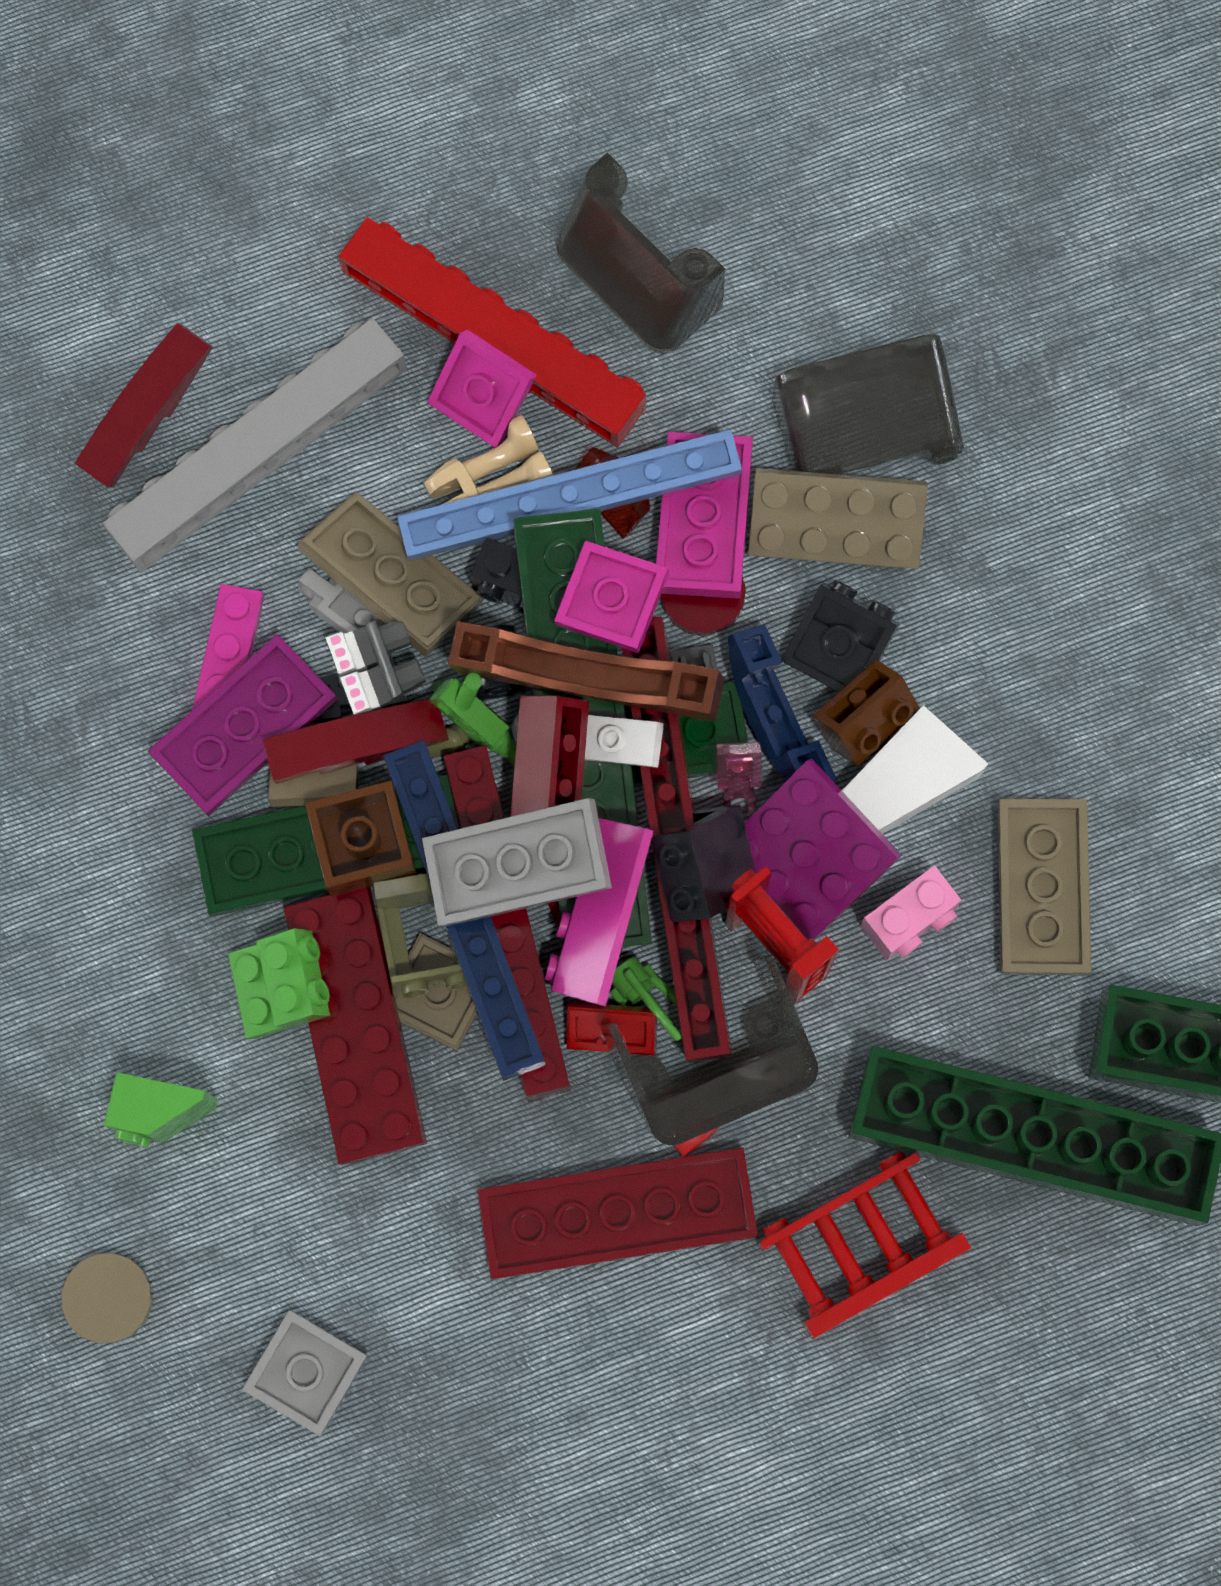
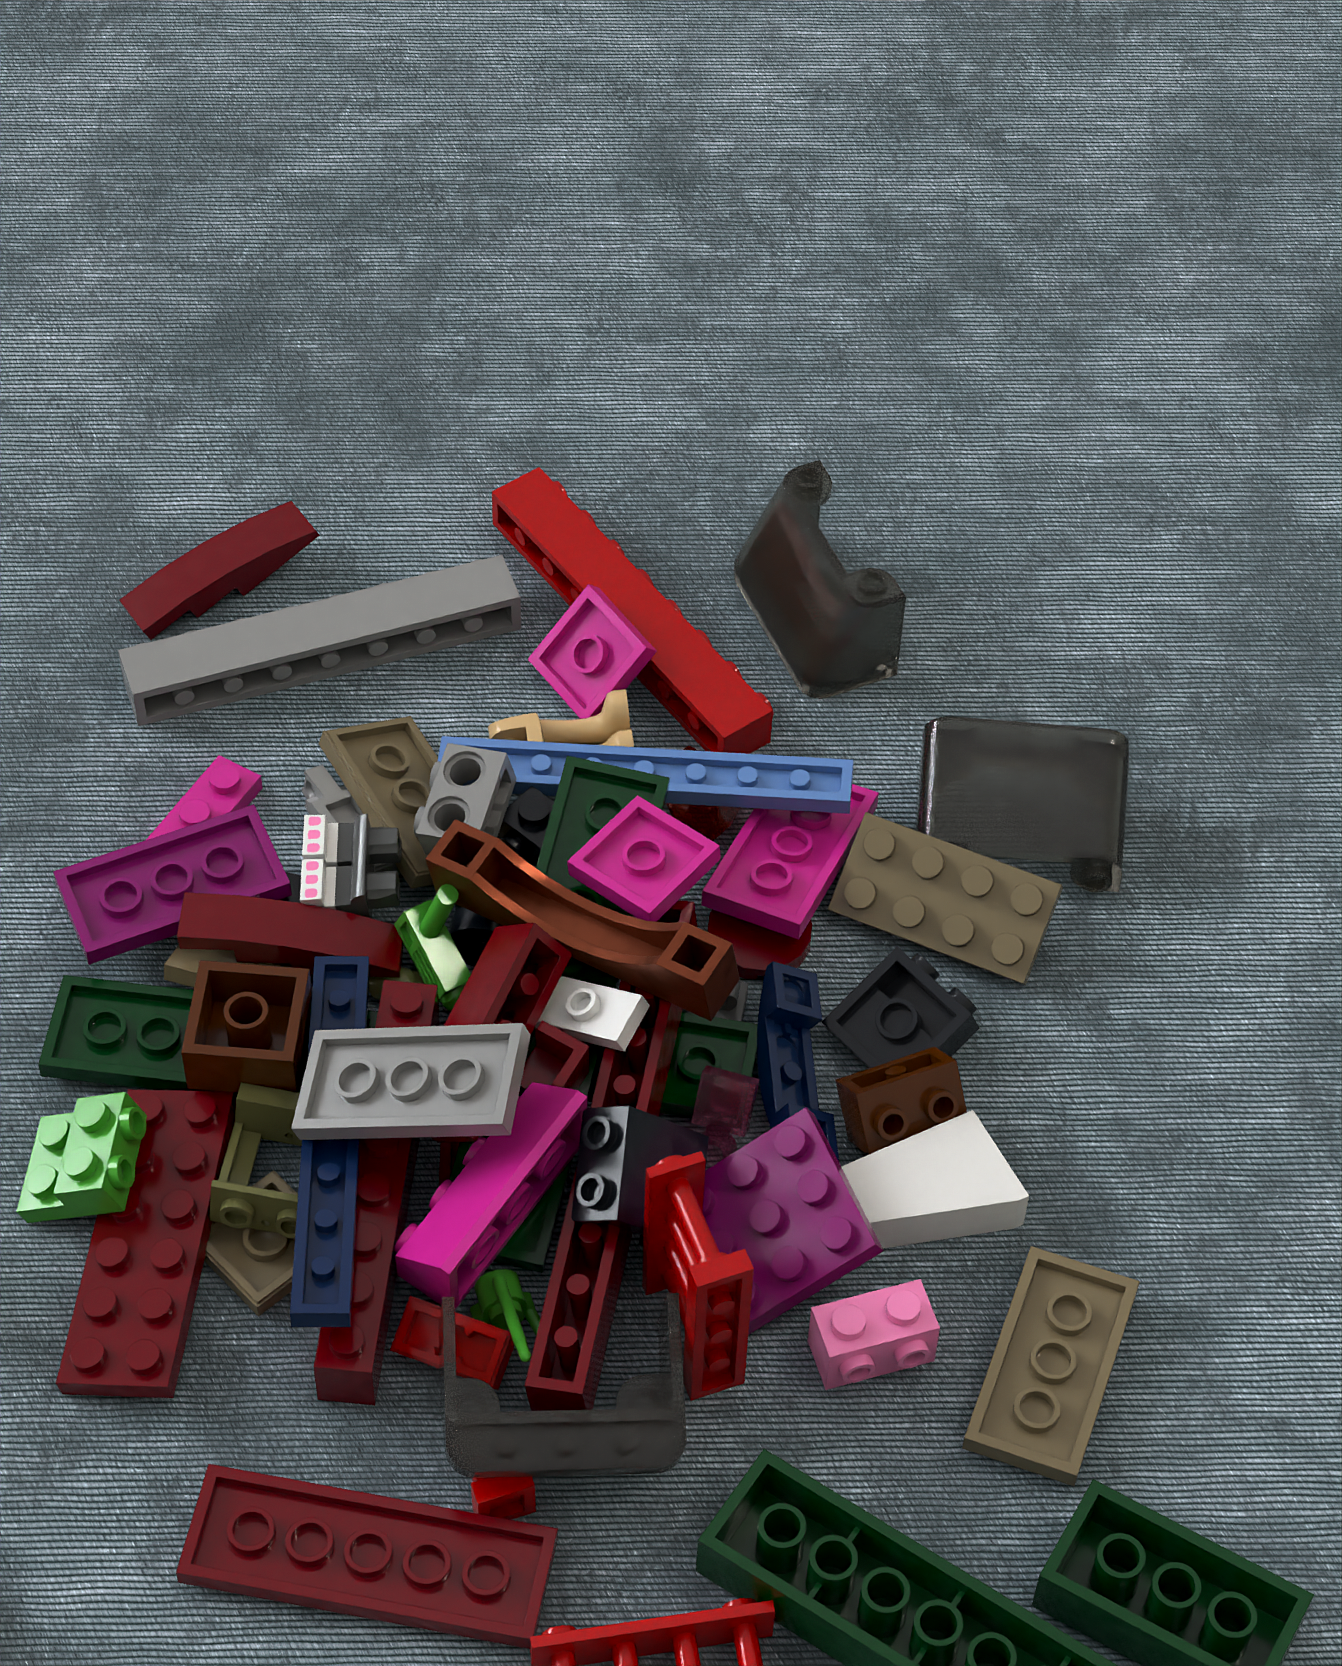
camera: 15 degrees right, 25 degrees down
(457, 579) = (475, 804): none -> light grey brick
(610, 793) = (556, 1060): none -> dark red panel

